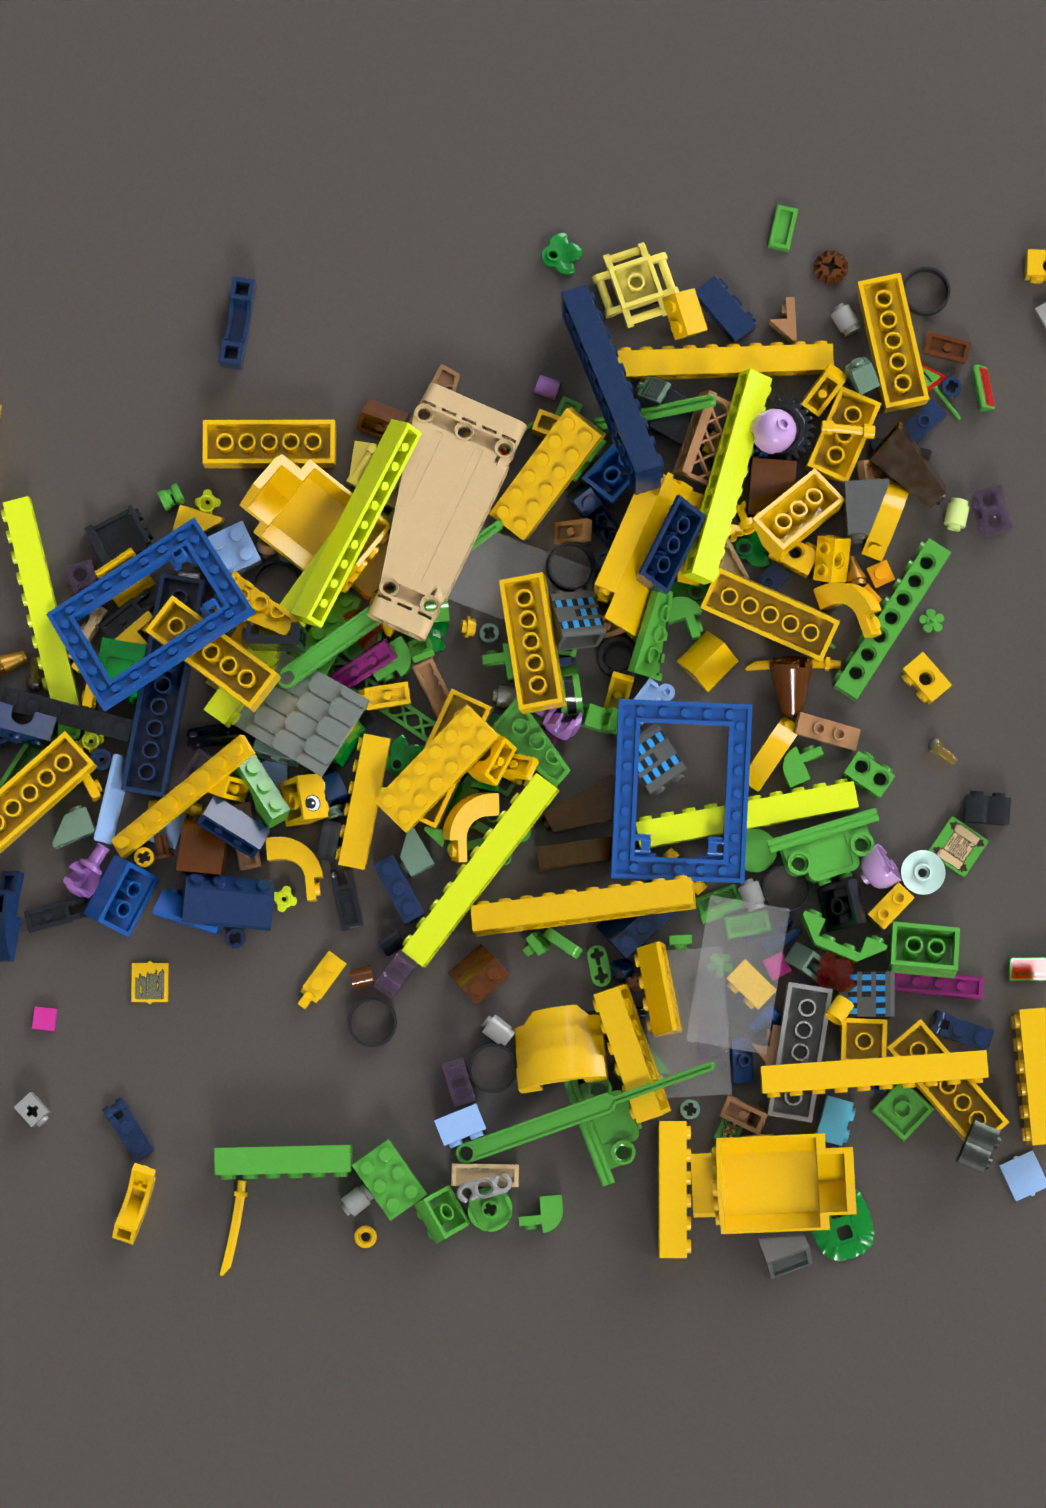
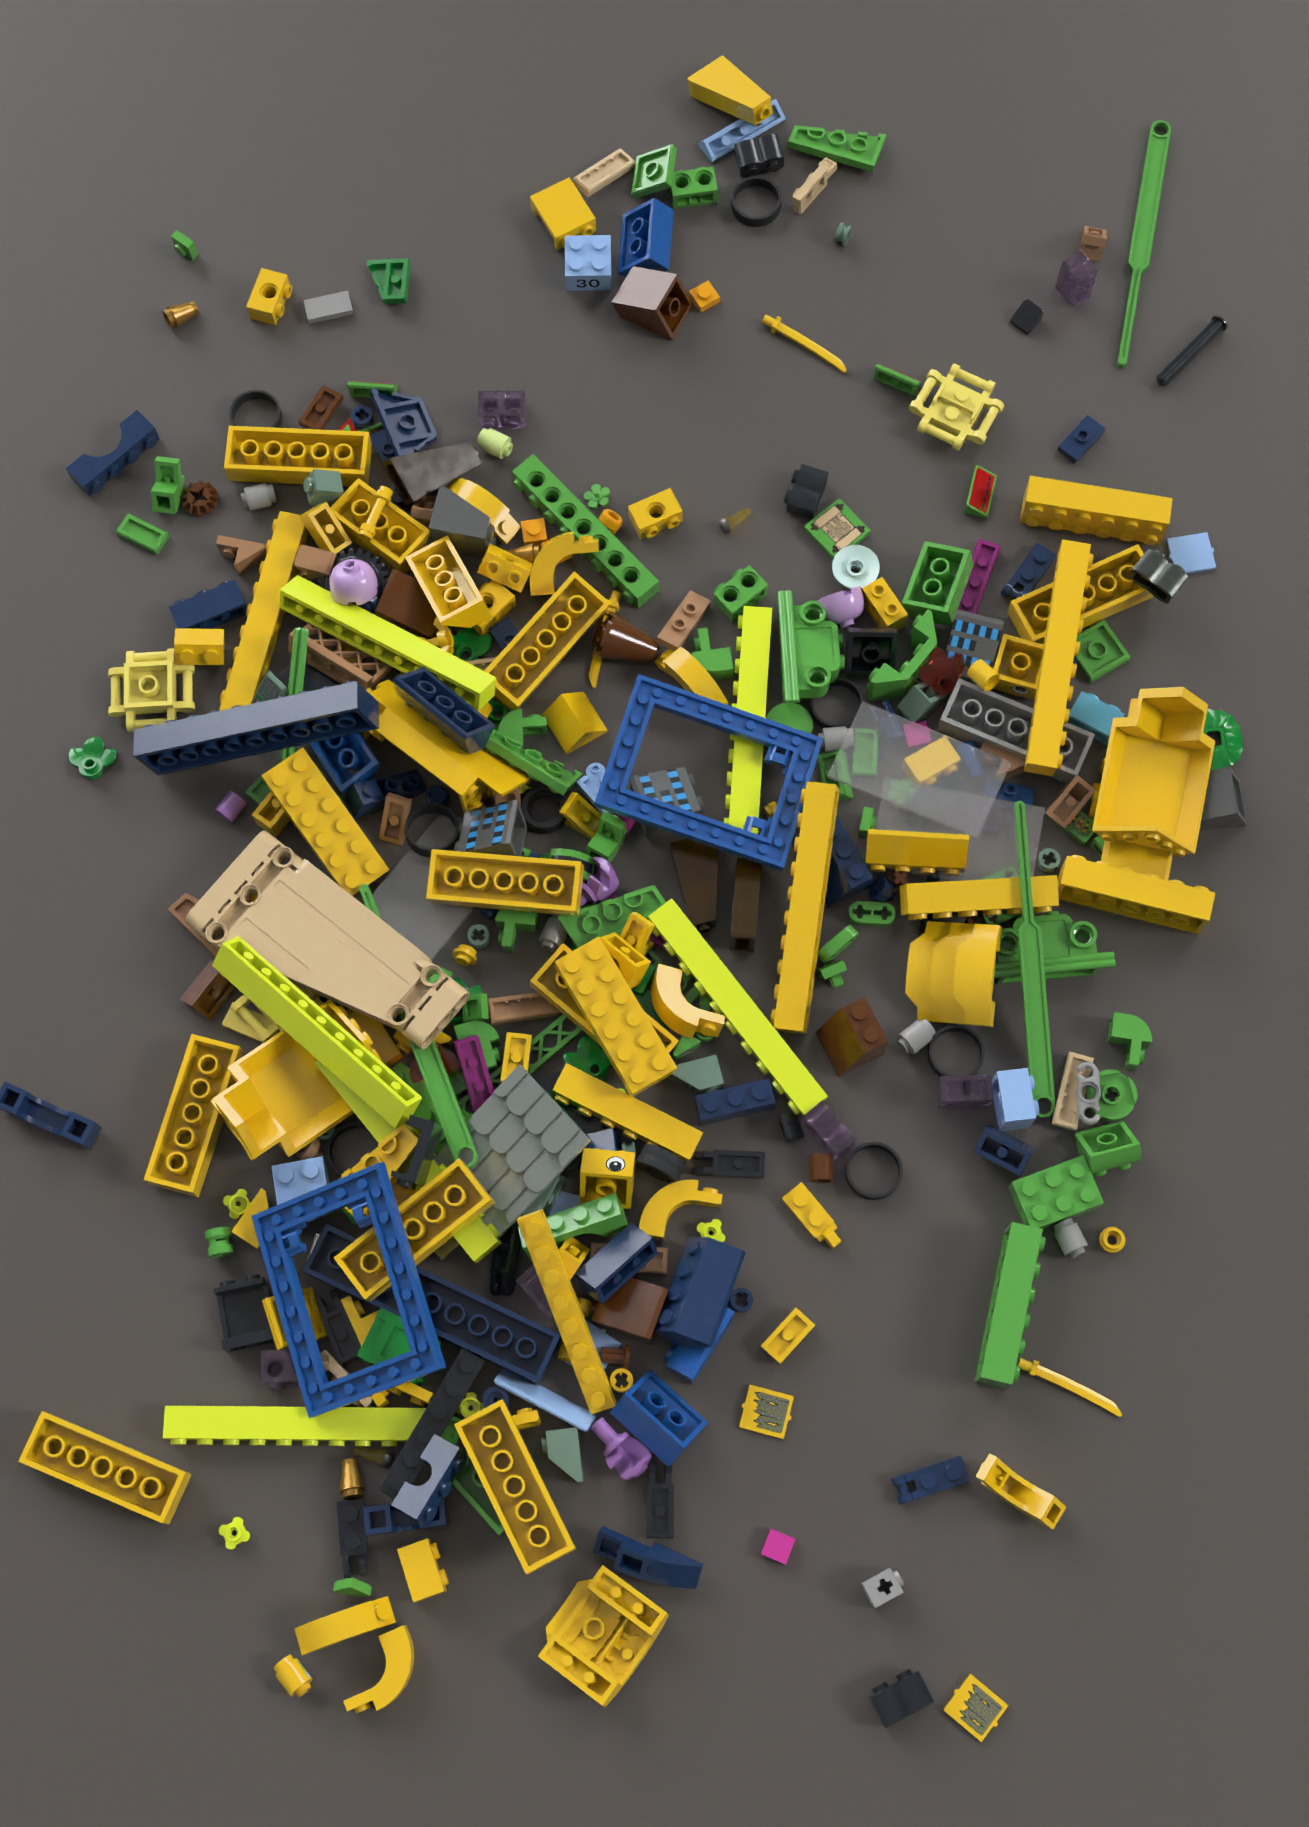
camera: 75 degrees left, 10 degrees down
(214, 984) = (787, 1335): none -> yellow plate
(416, 1127) = (1003, 1149): none -> dark blue brick
(790, 389) = (313, 562): none -> medium nougat slope
(830, 237) = (168, 485): none -> bright green brick
(873, 192) = (94, 472): none -> dark blue arch
(908, 639) = (611, 520): none -> light orange tile
(952, 428) = (404, 421): none -> dark blue wing
(1007, 189) = (180, 313): none -> pearl gold cone

